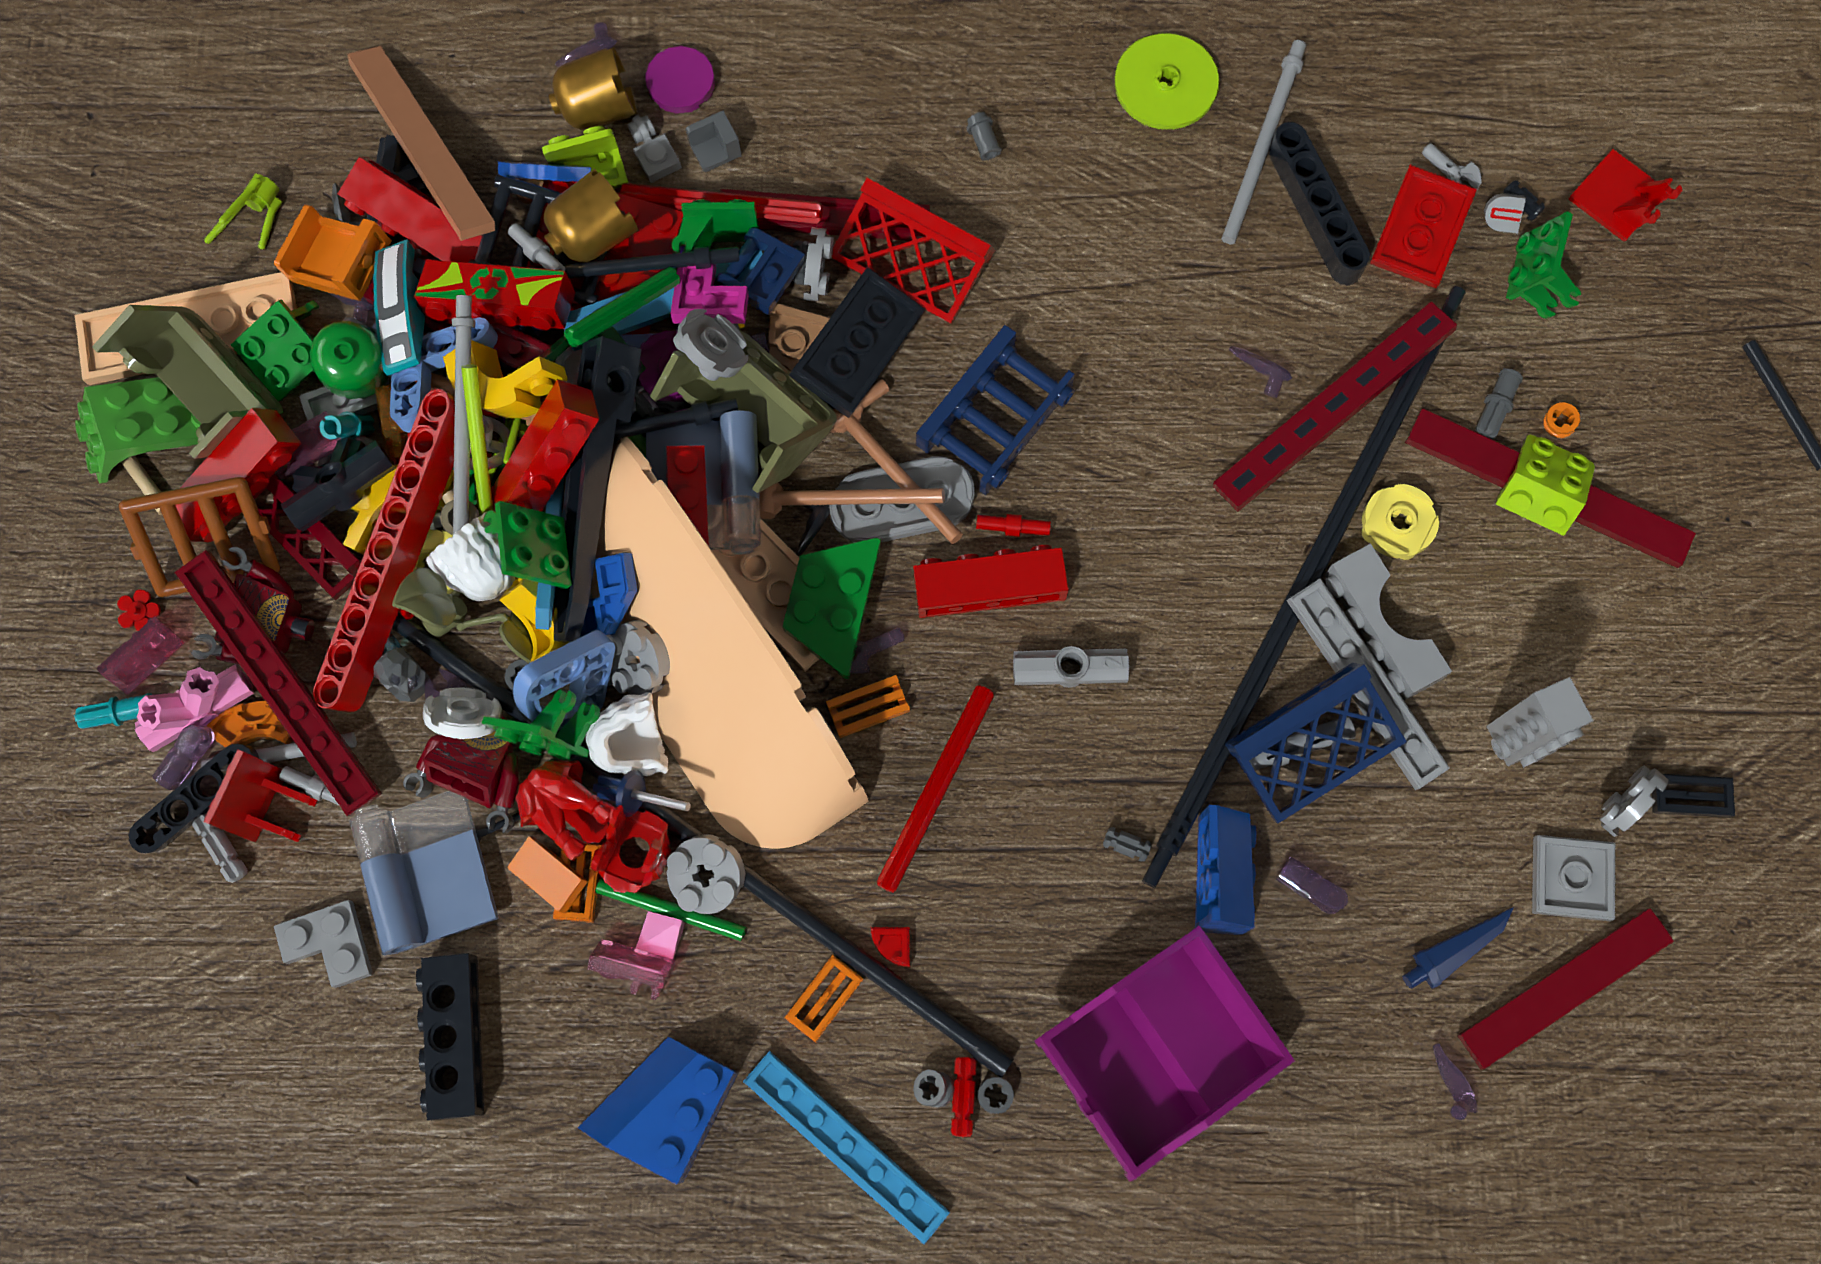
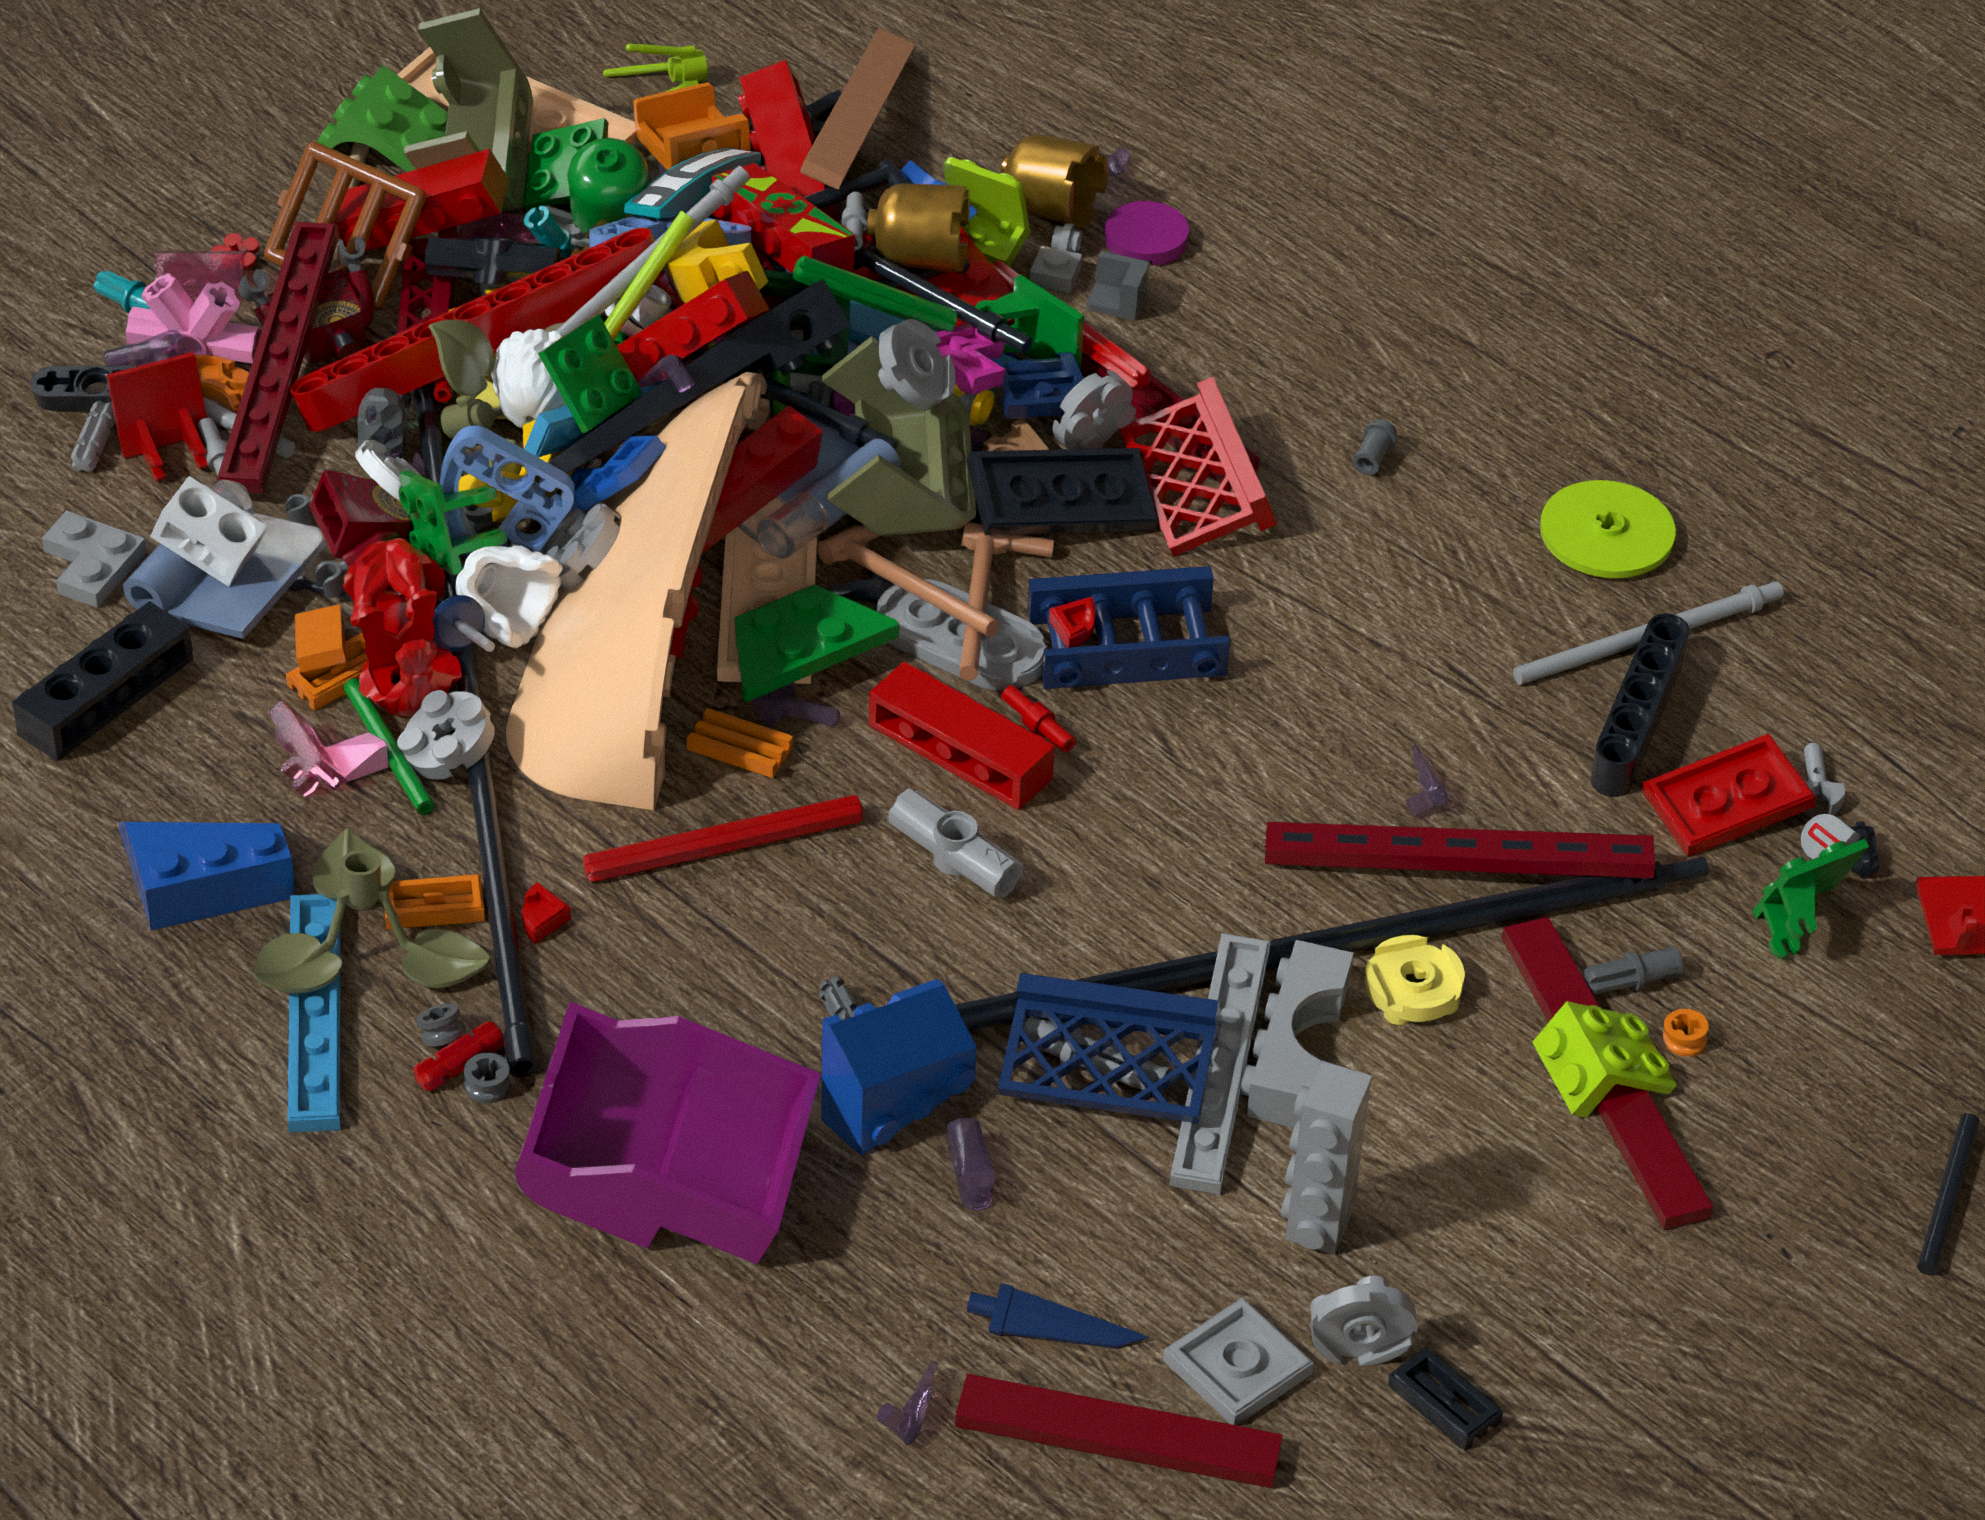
camera: 40 degrees right, 30 degrees down
(405, 880) = (208, 531): none -> white brick
(575, 492) = (668, 367): none -> clear purple bar
(760, 1031) = (359, 878): none -> olive plant
(972, 439) = (1074, 621): none -> red tile

